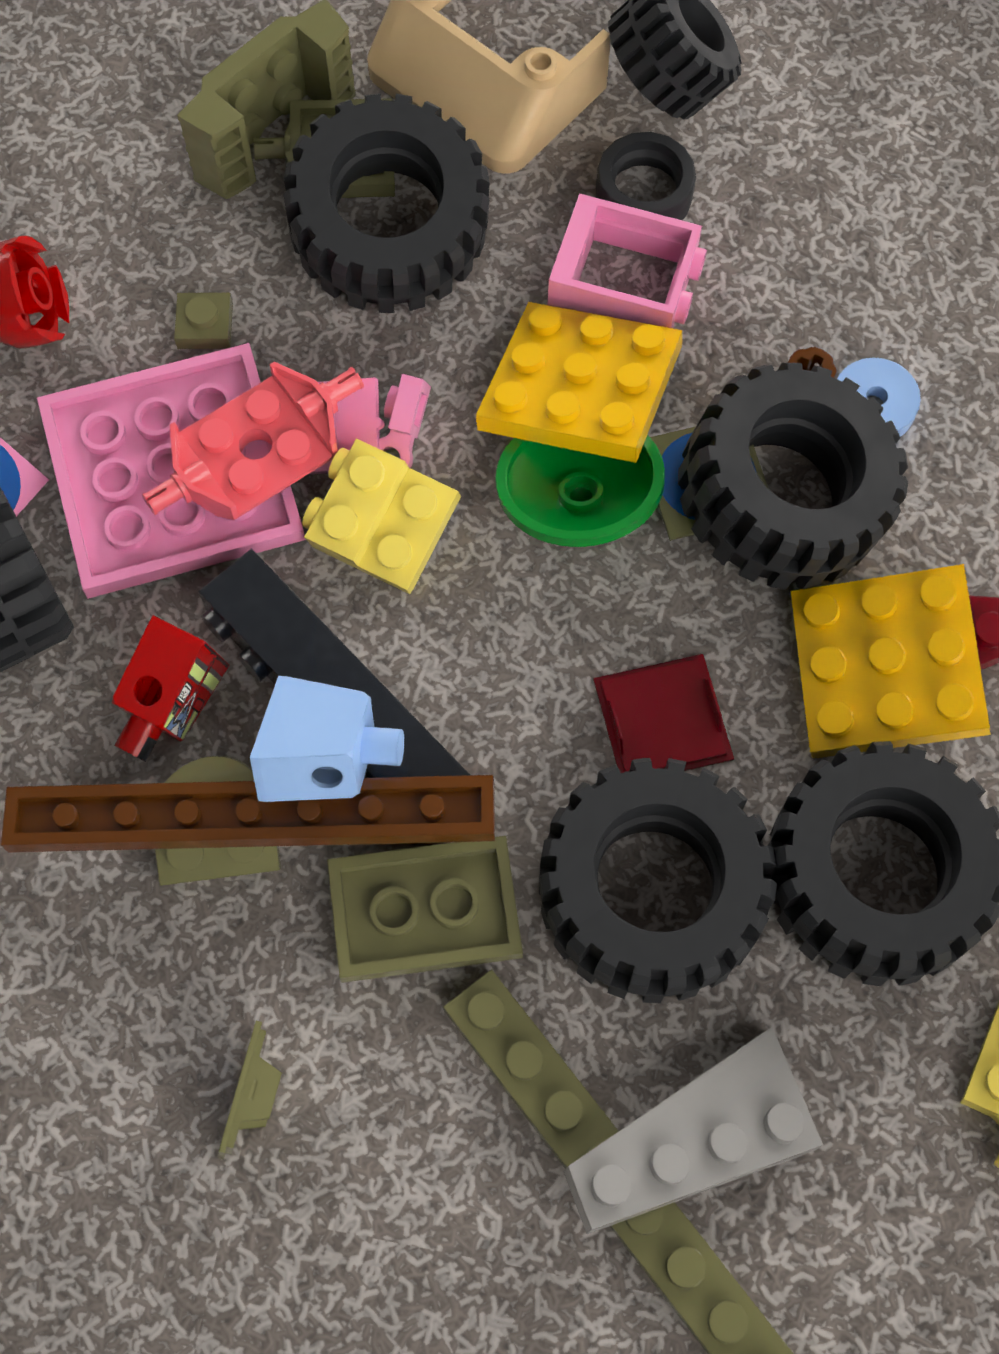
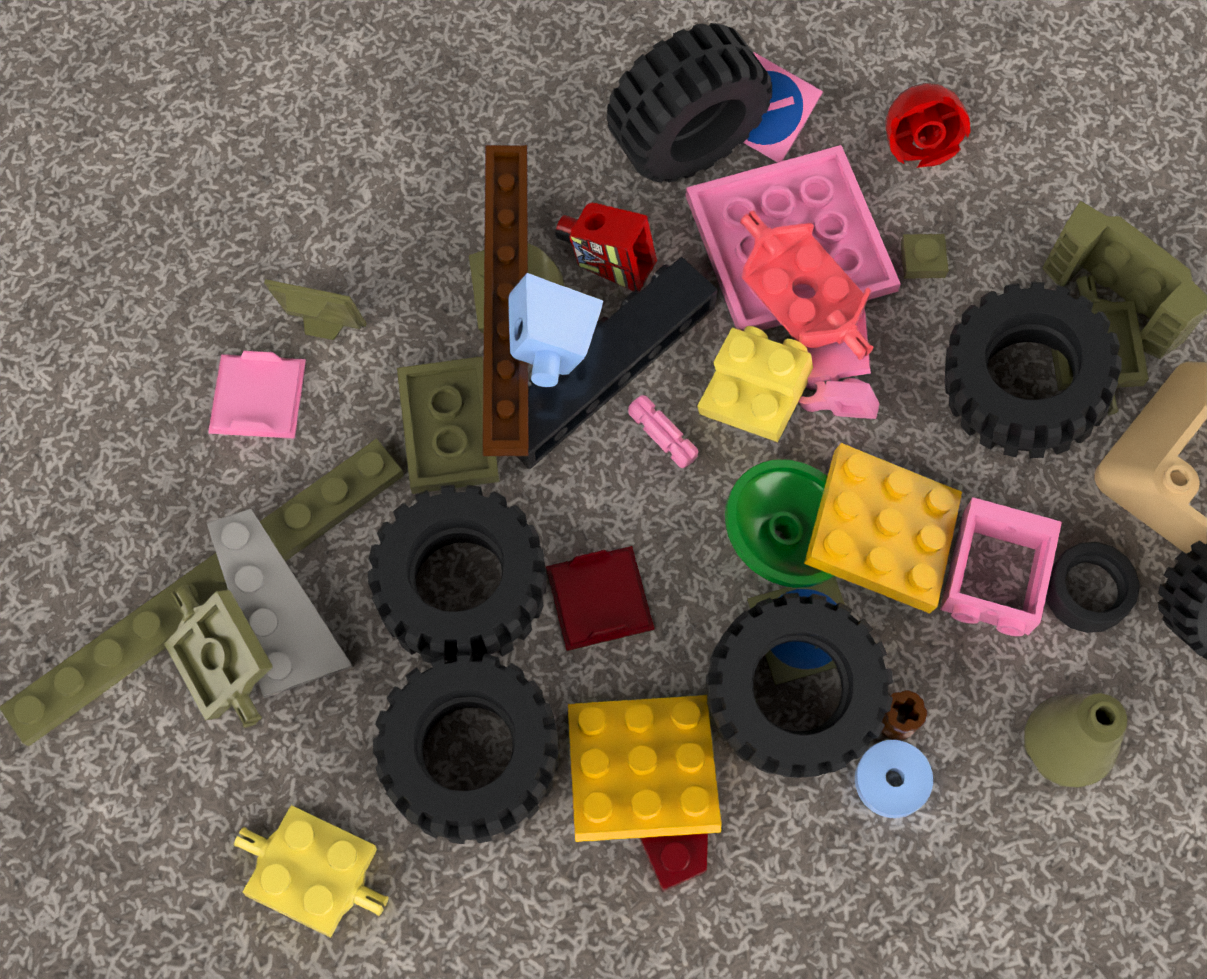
camera: 90 degrees right, 0 degrees up
(363, 1193) = (257, 395): none -> bright pink piece
(438, 634) = (663, 431): none -> bright pink axle
(775, 1207) = (217, 655): none -> olive plate
(824, 205) = (1075, 737): none -> olive cone

